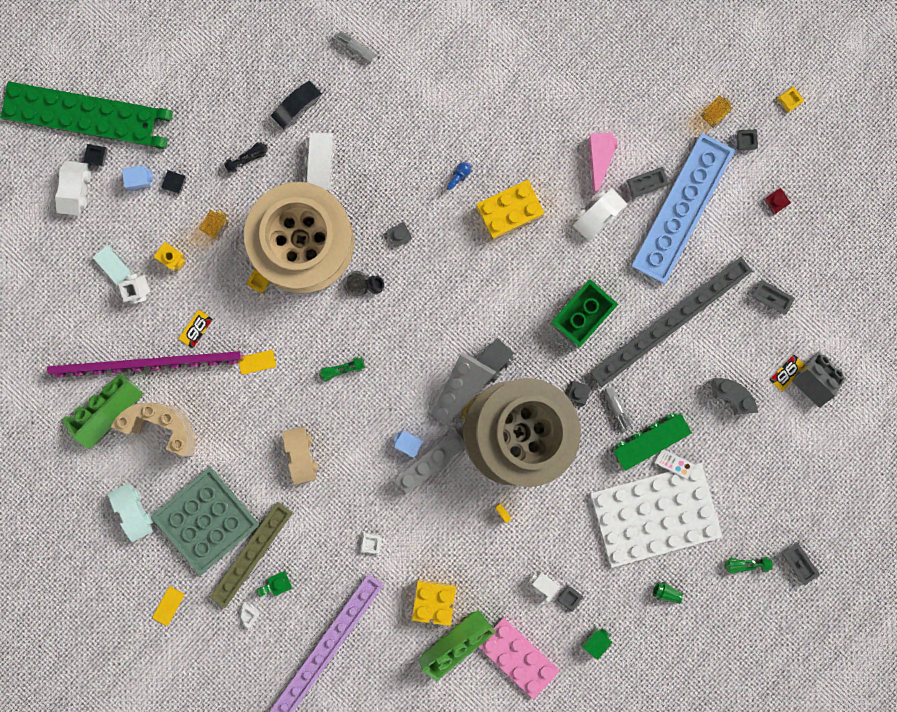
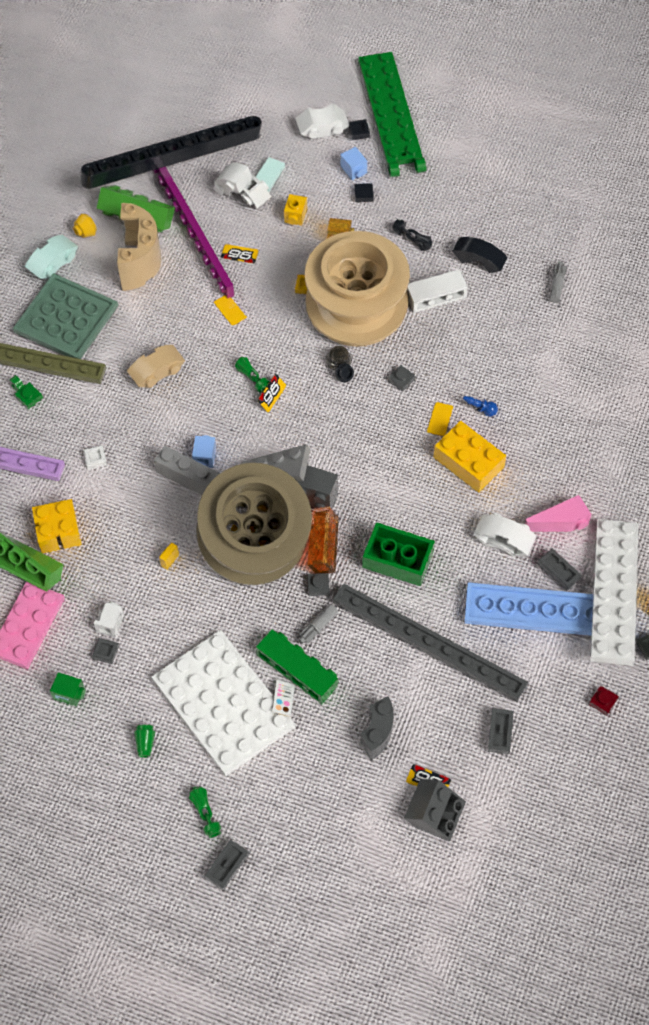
camera: 75 degrees right, 25 degrees down
(61, 359) = (170, 152): none -> black beam
(105, 468) = (84, 226): none -> yellow cone
(113, 305) = (232, 179): none -> white brick
(369, 359) = (272, 393): none -> sticker
(455, 218) = (440, 419): none -> yellow sticker
(537, 368) = (323, 541): none -> clear orange brick
(690, 146) = (614, 593): none -> white plate

